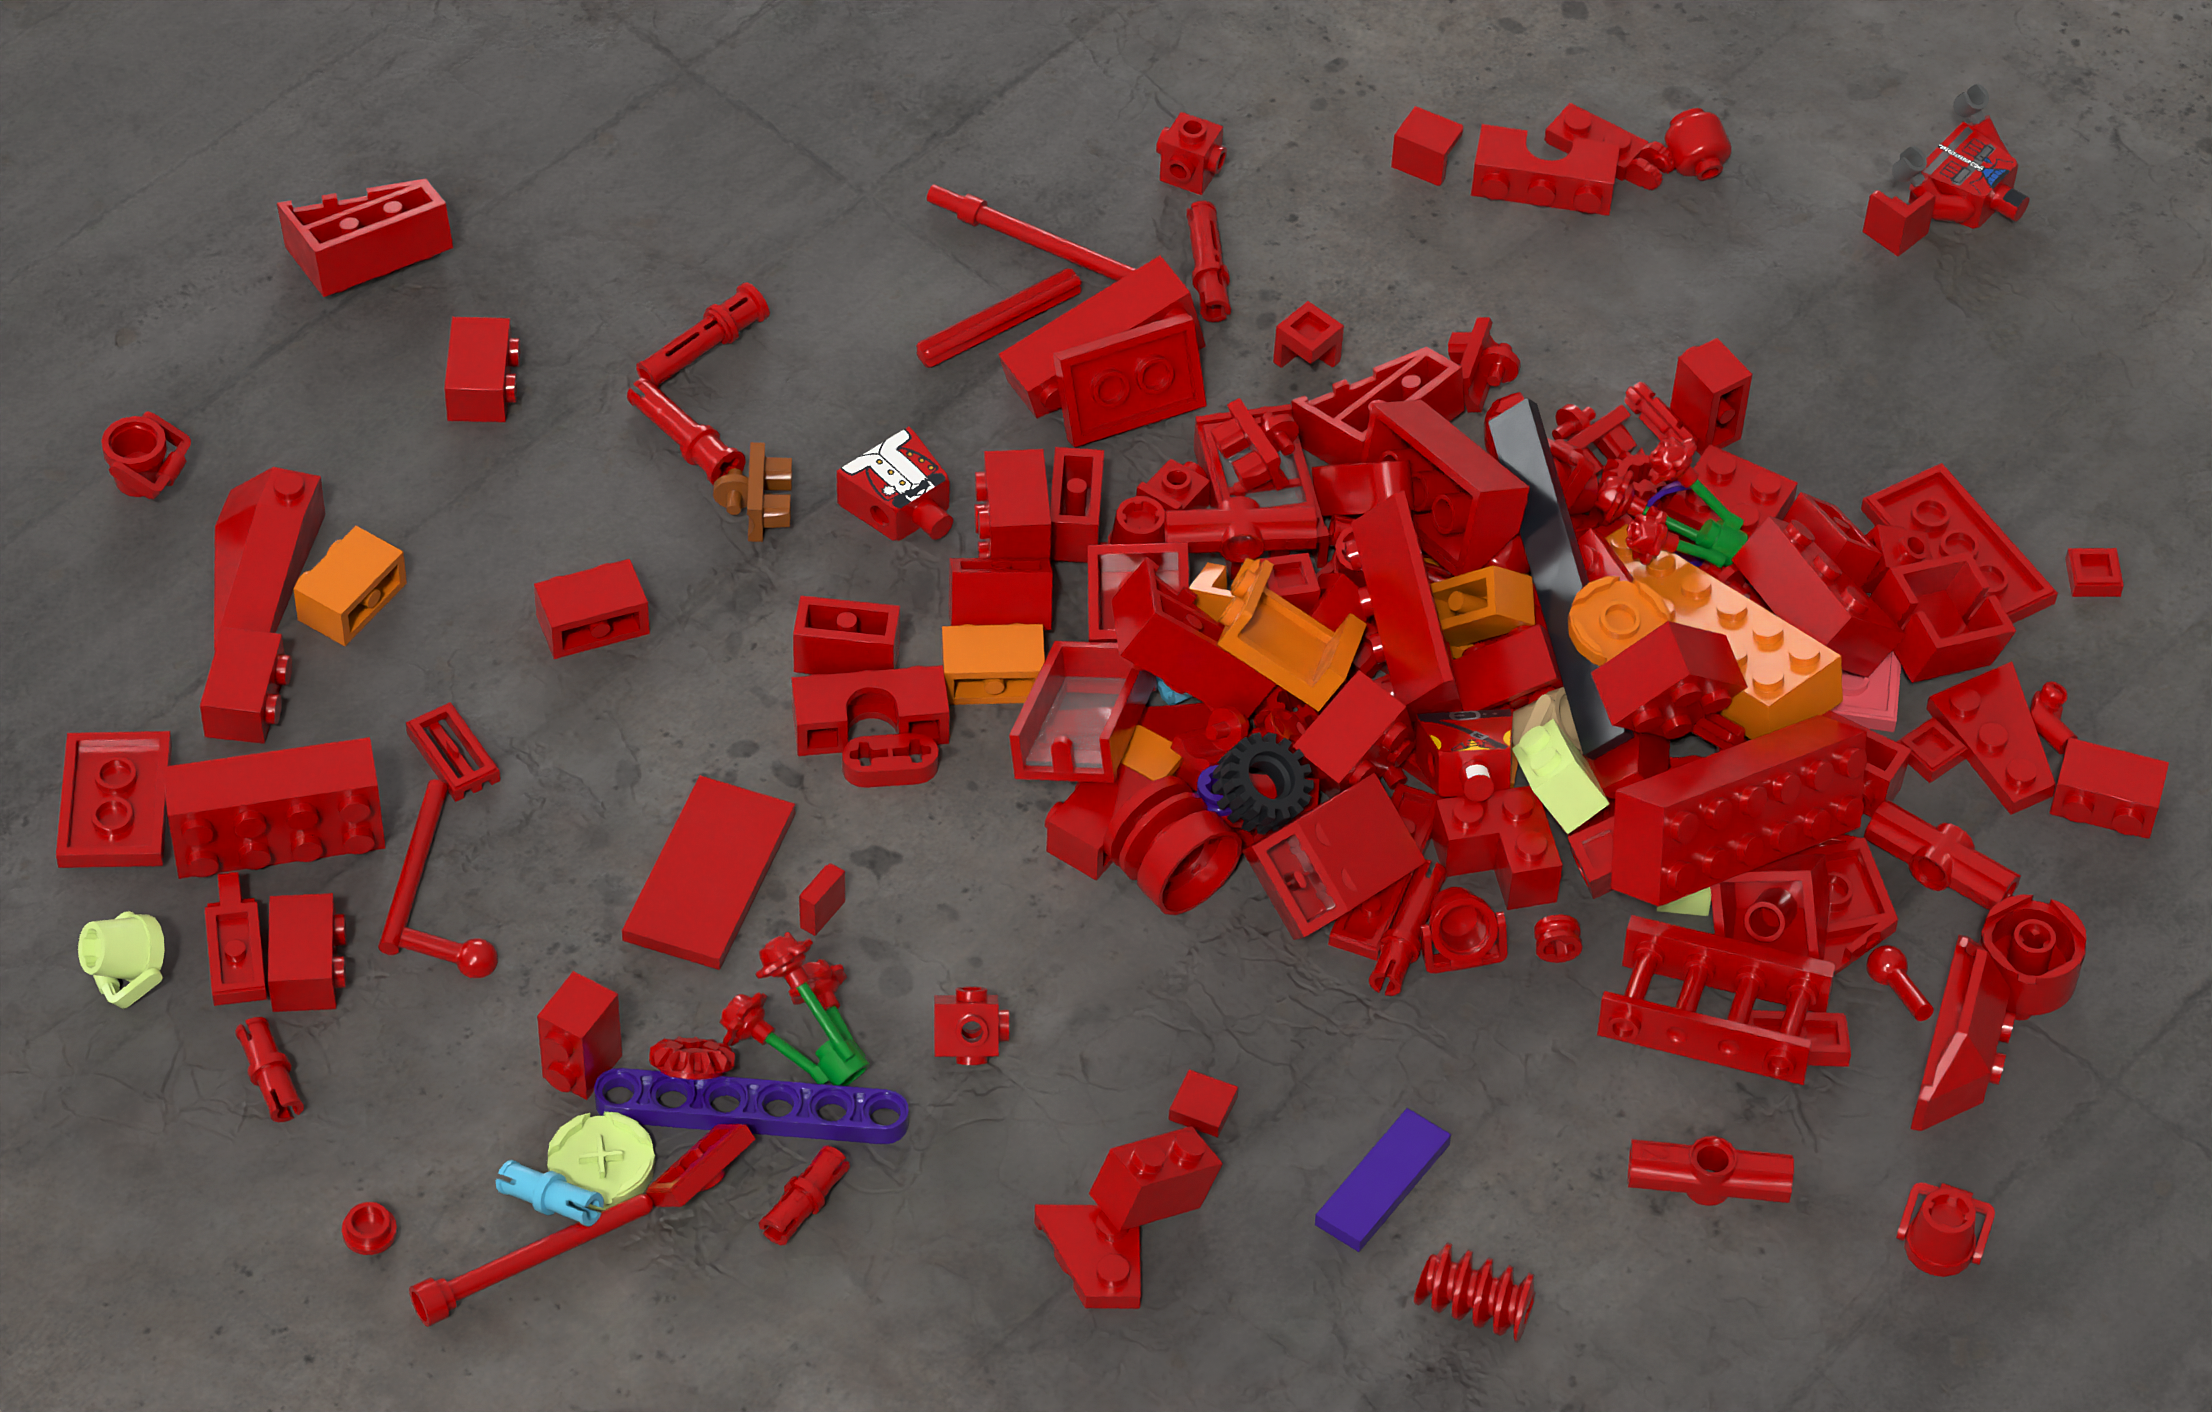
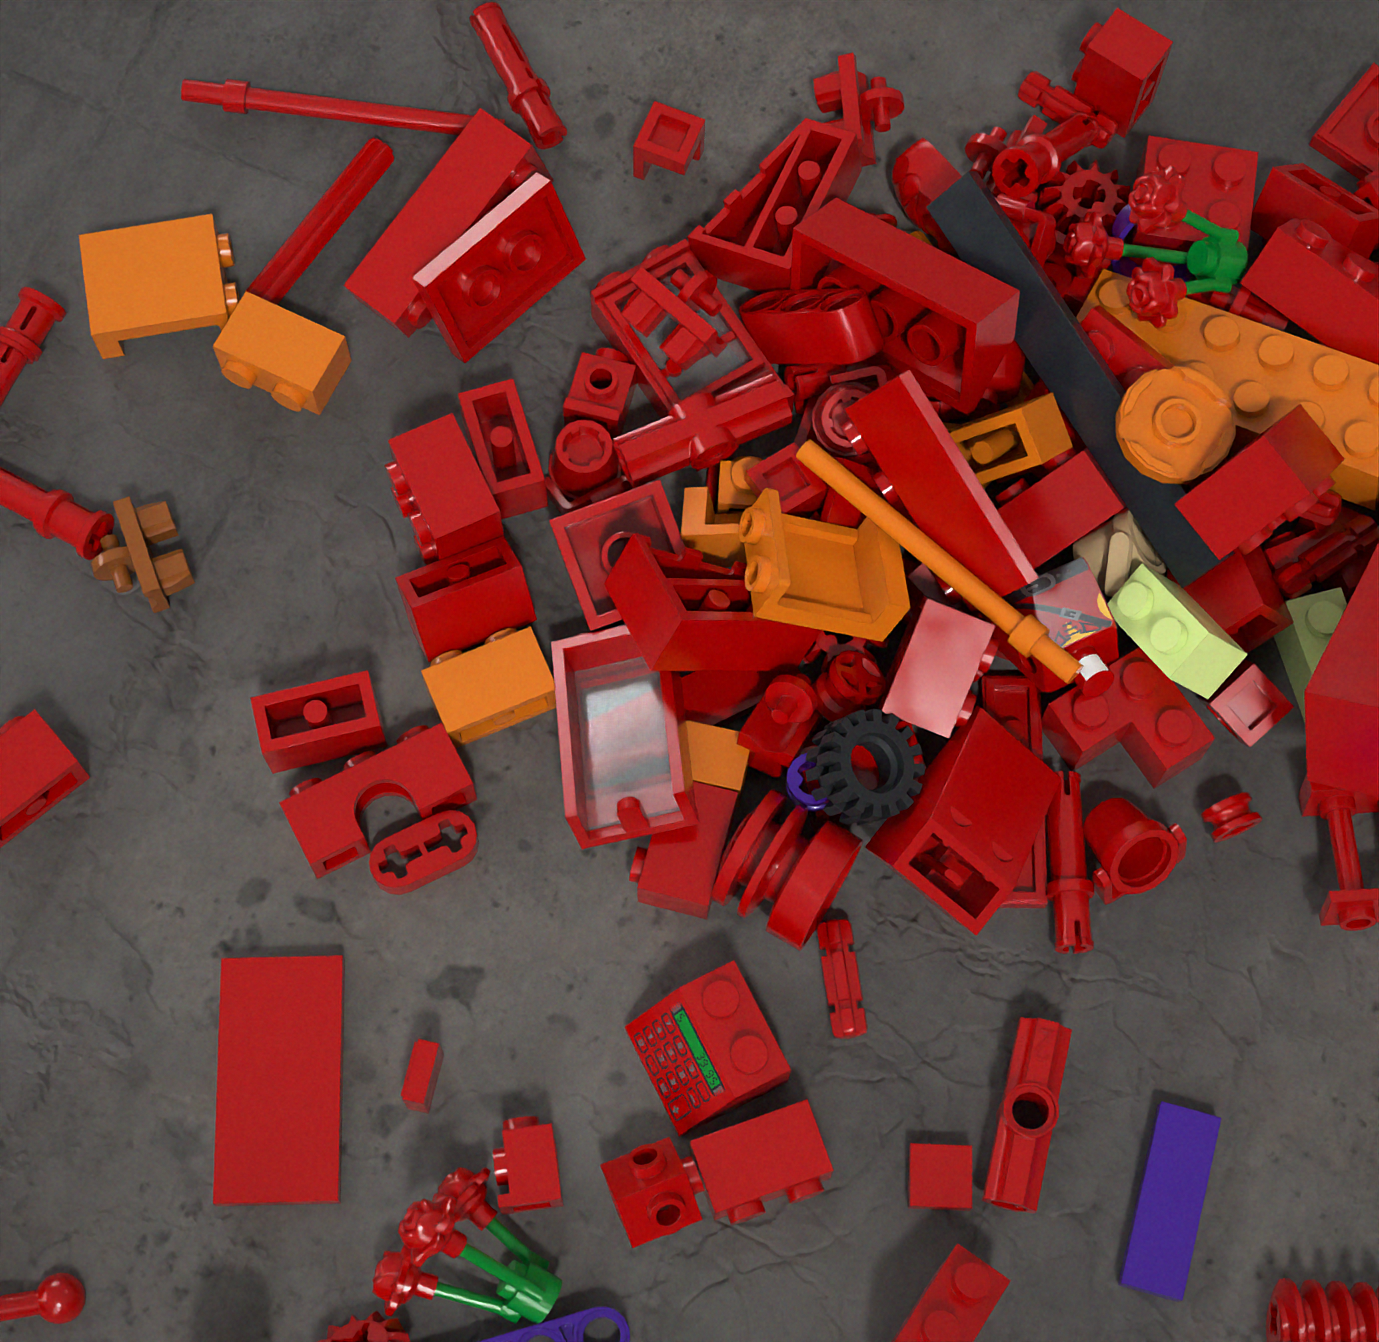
camera: 20 degrees left, 20 degrees up
(852, 311) = (156, 280): none -> orange panel
(876, 986) = (528, 1166): none -> red brick
(897, 488) = (297, 493): red torso -> none
(929, 392) = (281, 354): none -> orange brick
(1057, 954) = (708, 1049): none -> red slope
(1063, 1038) = (761, 1162): none -> red brick
(1185, 947) = (841, 979): none -> red axle
(1275, 1095) = (1018, 1152): none -> red piece
(1428, 721) = (1025, 633): none -> orange bar
(1605, 426) = (1039, 156): none -> red pin

